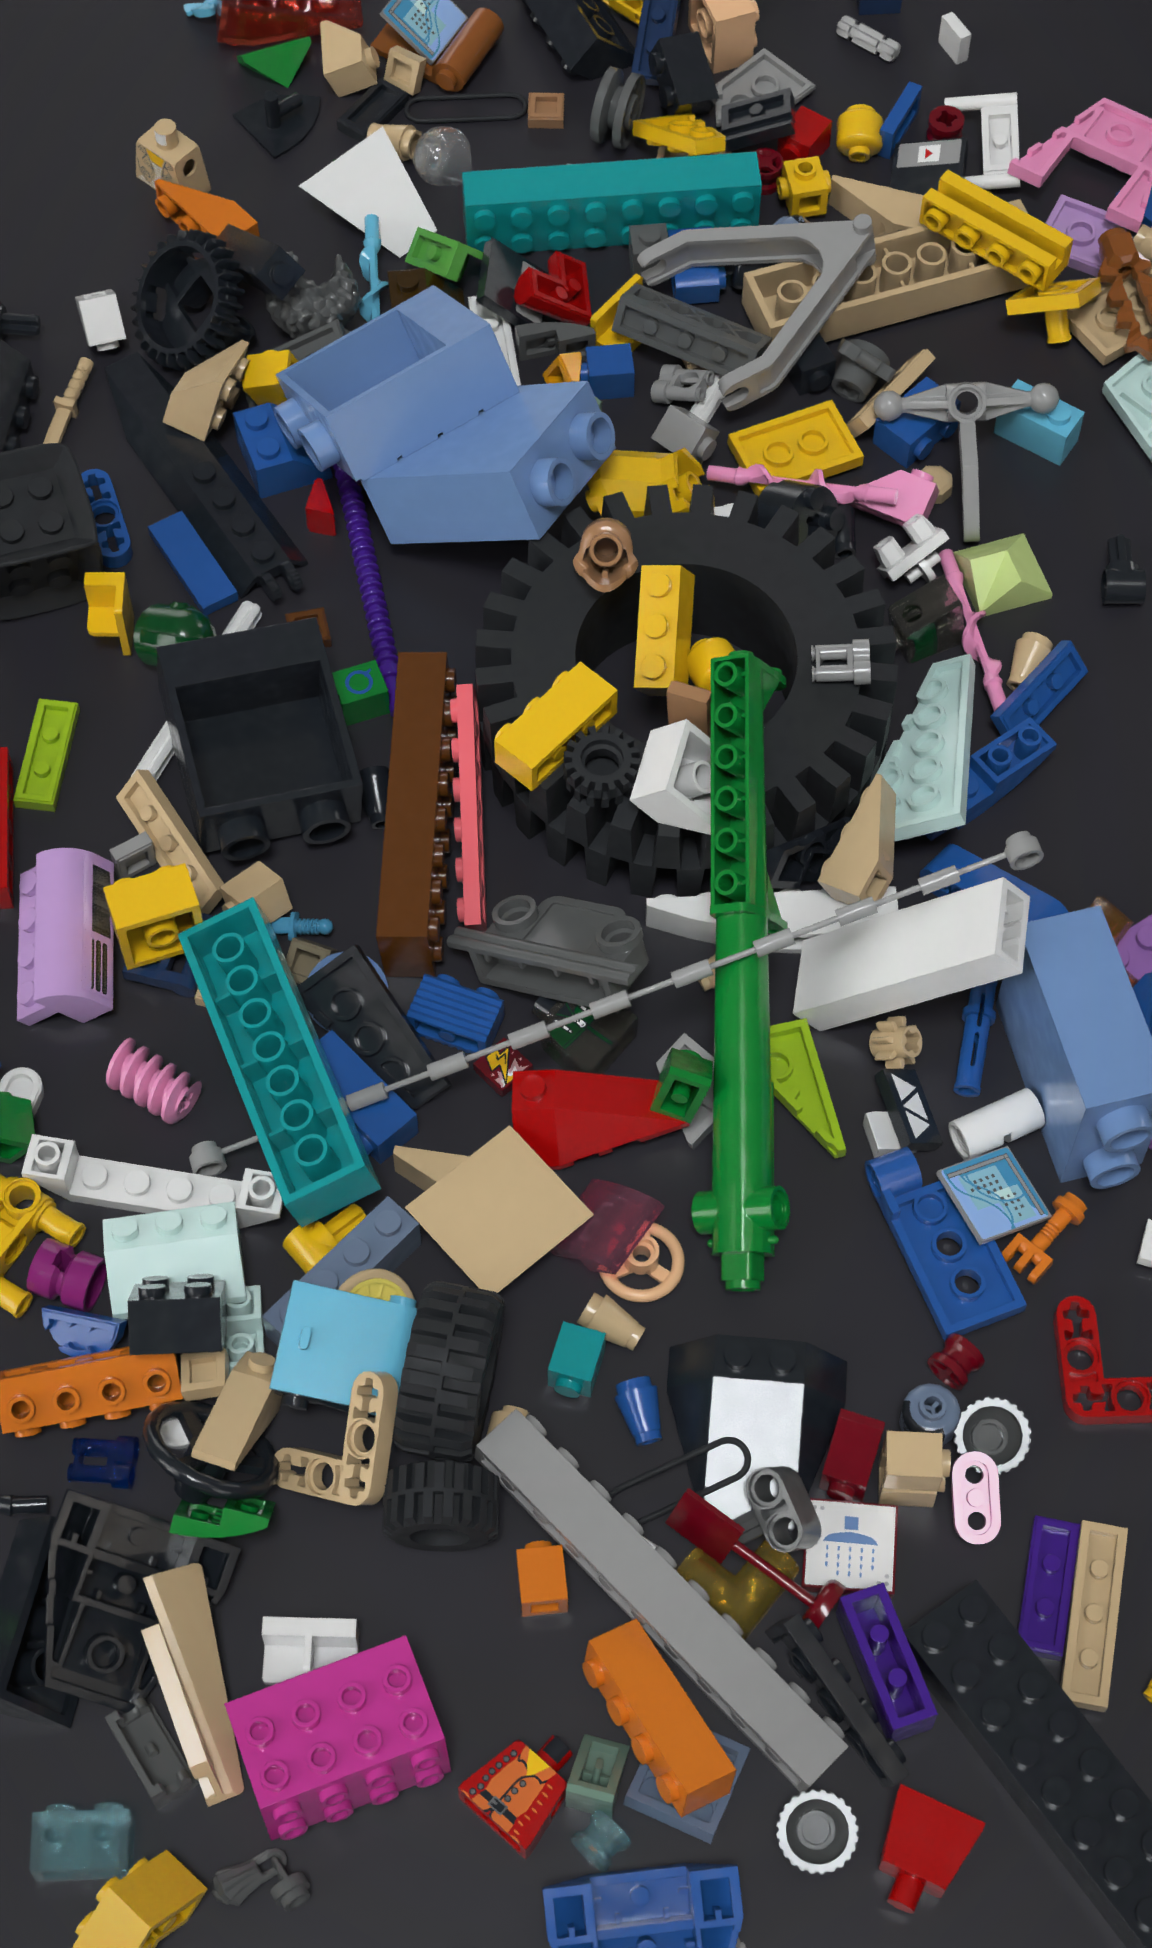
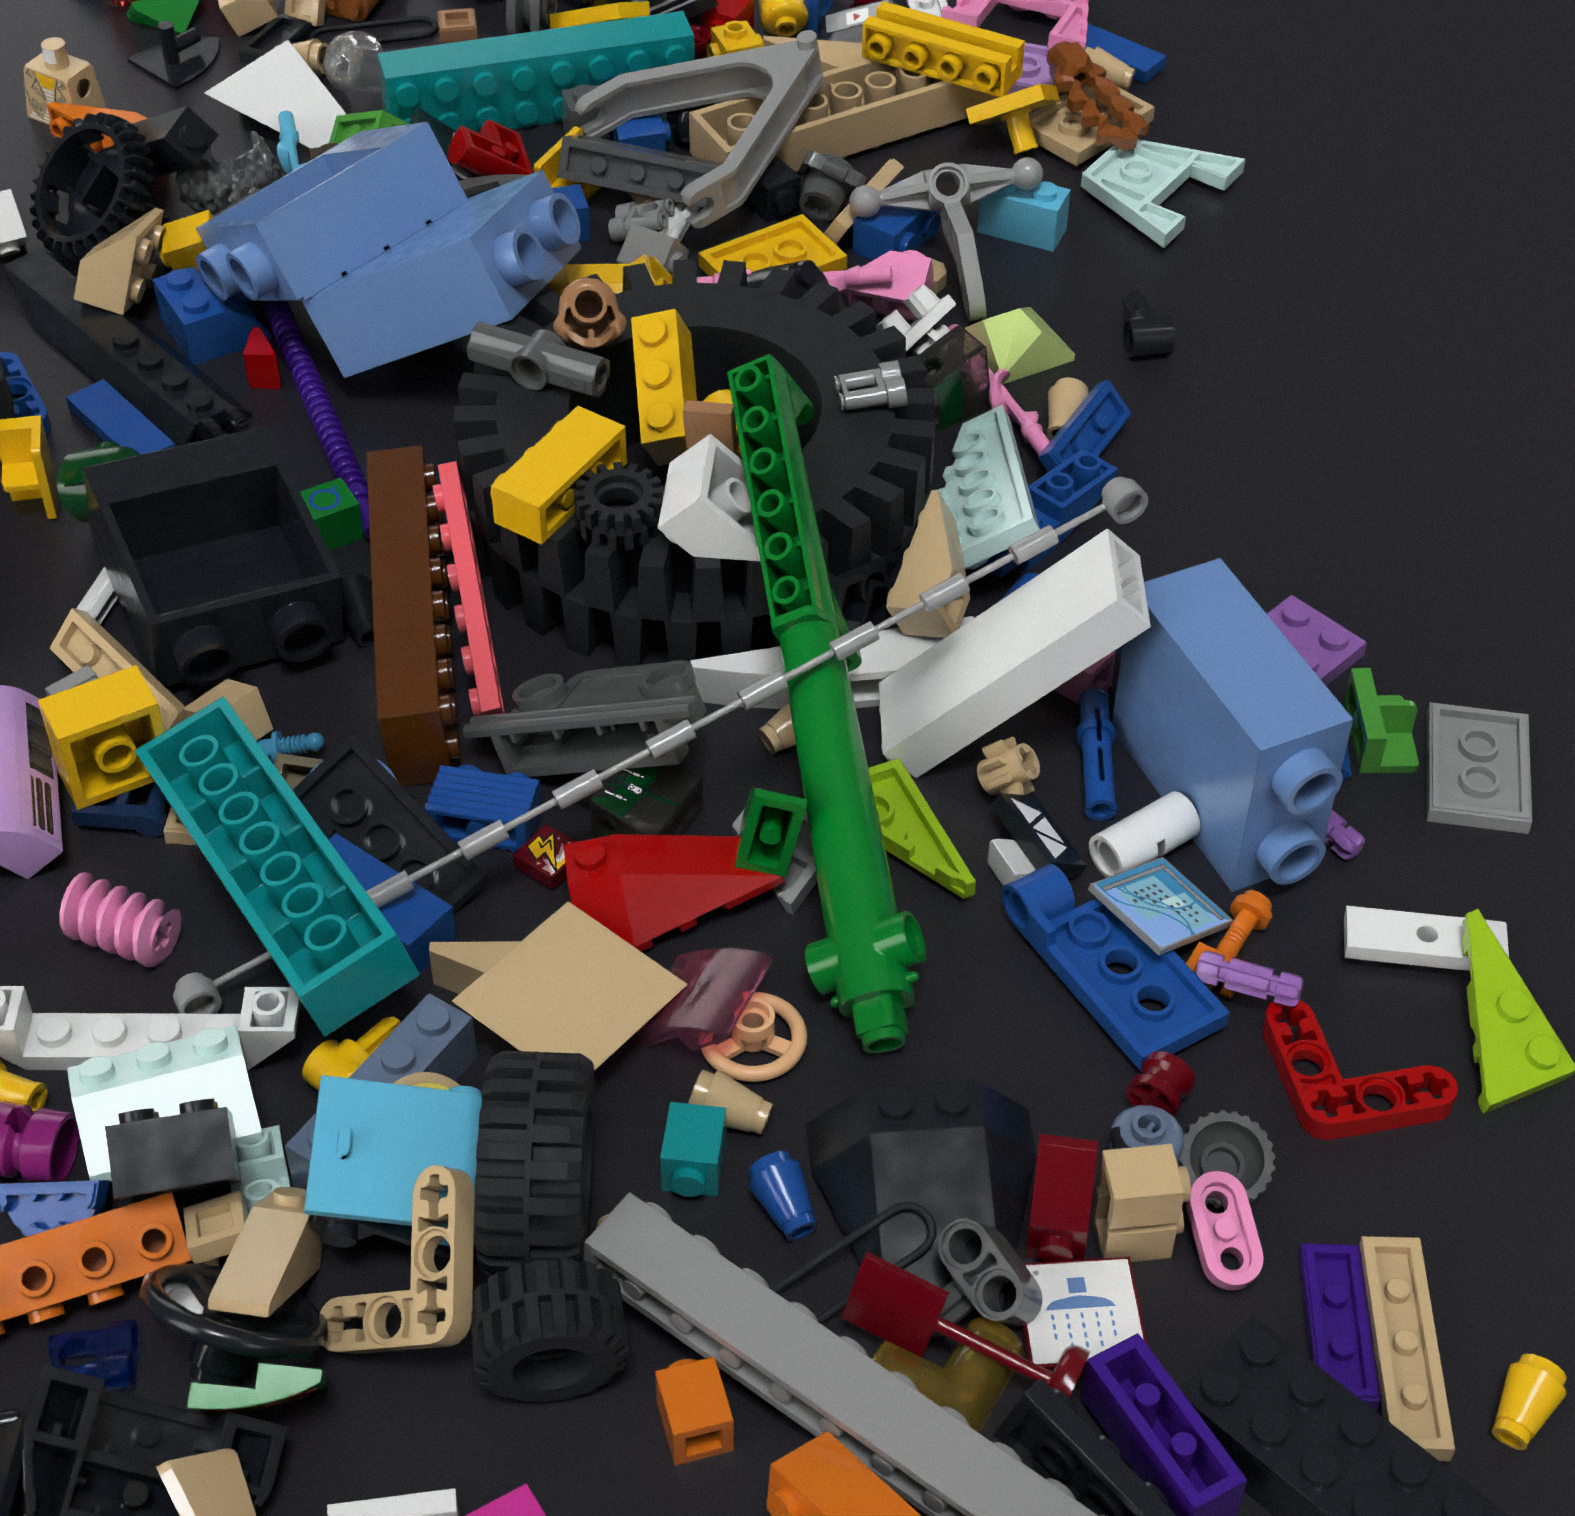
camera: 10 degrees left, 15 degrees down
(555, 594) = (538, 359): none -> dark grey piece
(1049, 1277) = (1249, 978): none -> medium lavender axle

